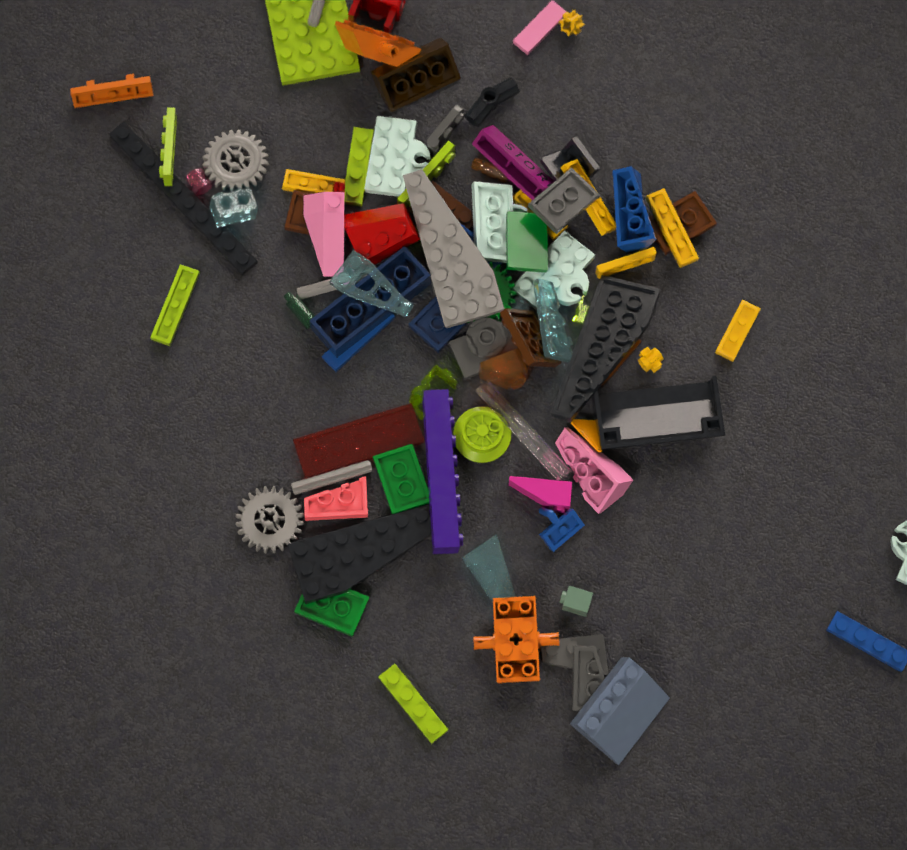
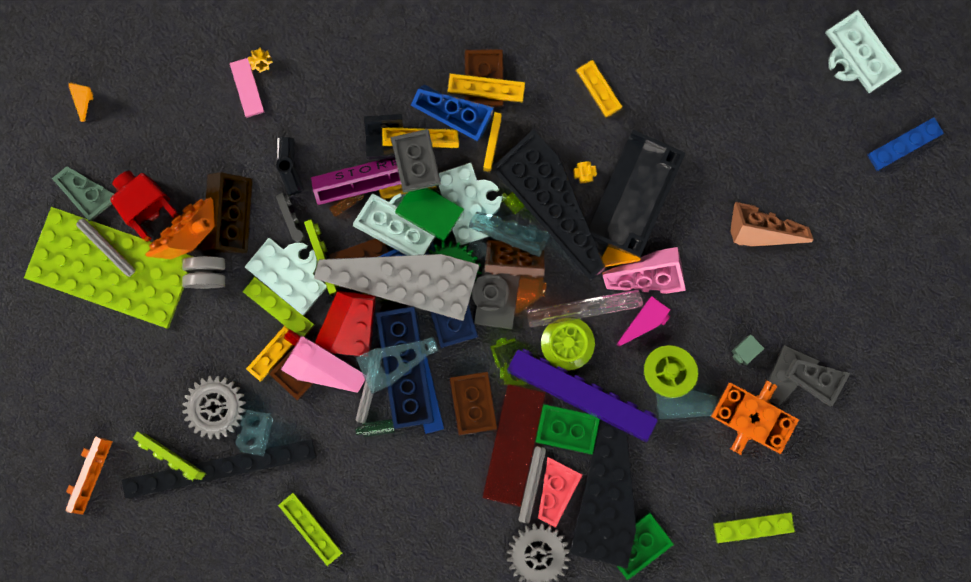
camera: 55 degrees left, 10 degrees up
(198, 181) = (213, 448): clear pink wheel -> none
(350, 82) = (203, 272): none -> light grey wheel
(374, 382) = (473, 403): none -> reddish brown plate
(512, 538) = (670, 371): none -> lime wheel
(561, 528) = (681, 326): blue plate -> none
(620, 709) = (853, 370): sand blue slope -> none
(699, 548) = (759, 229): none -> nougat wedge

